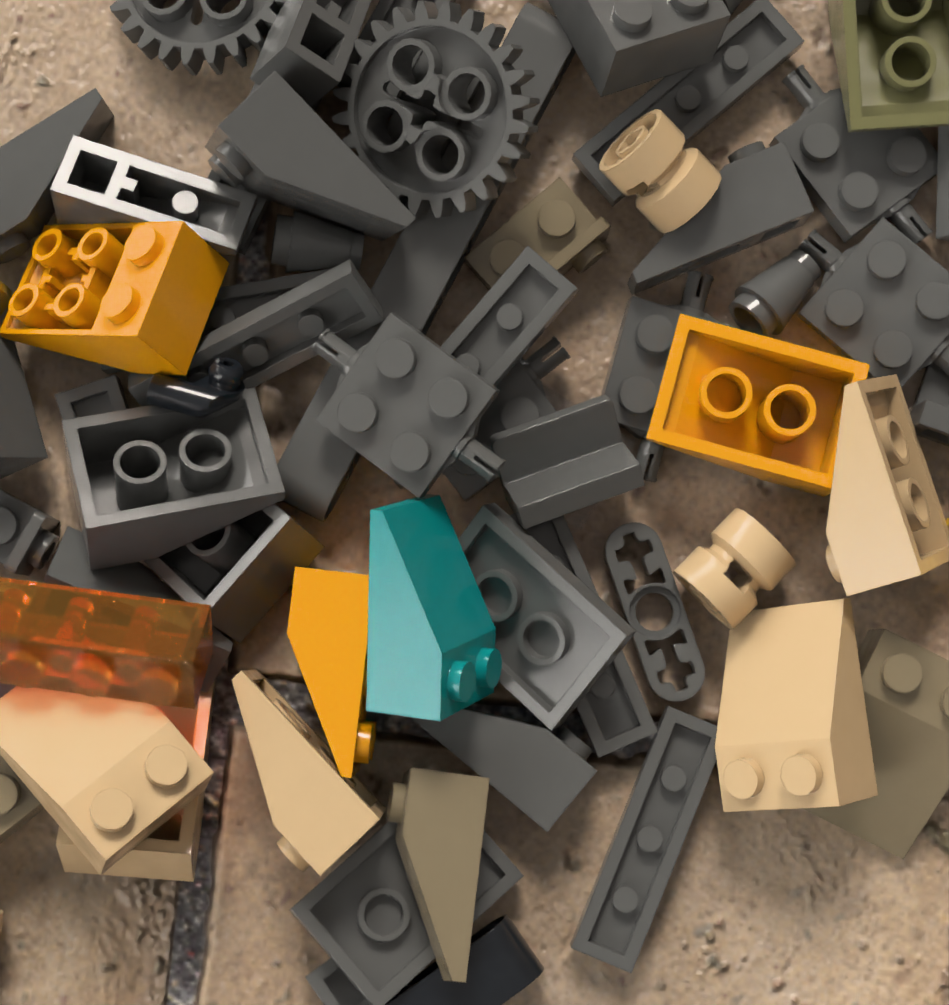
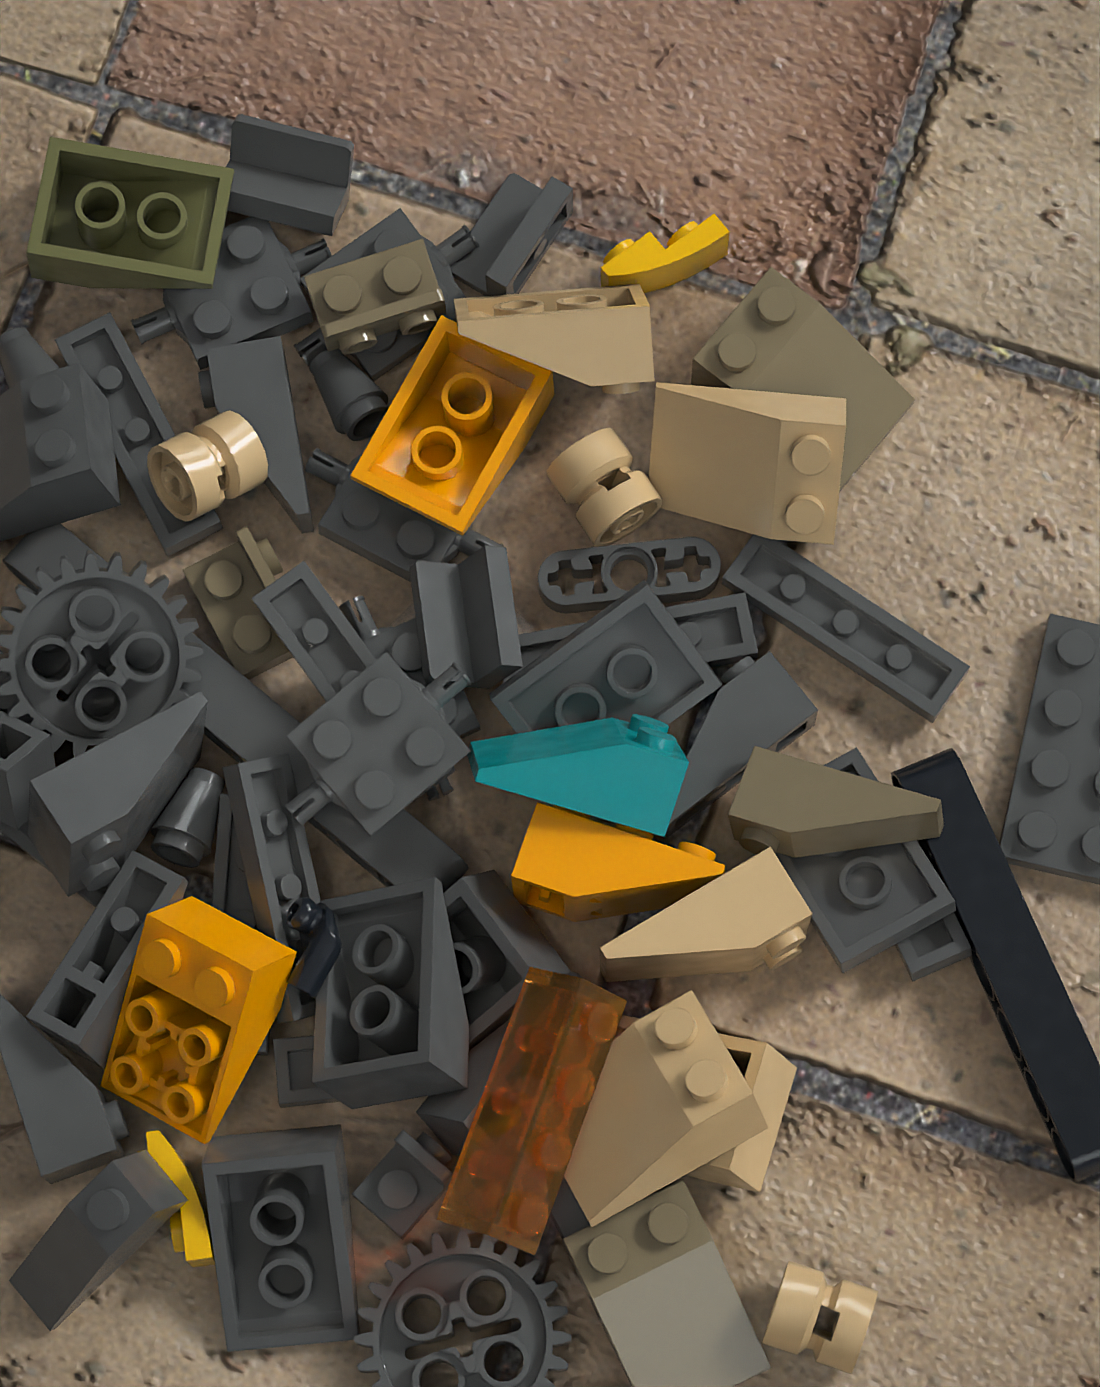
camera: 75 degrees left, 10 degrees down
(877, 295) = (376, 297): none -> dark tan bracket

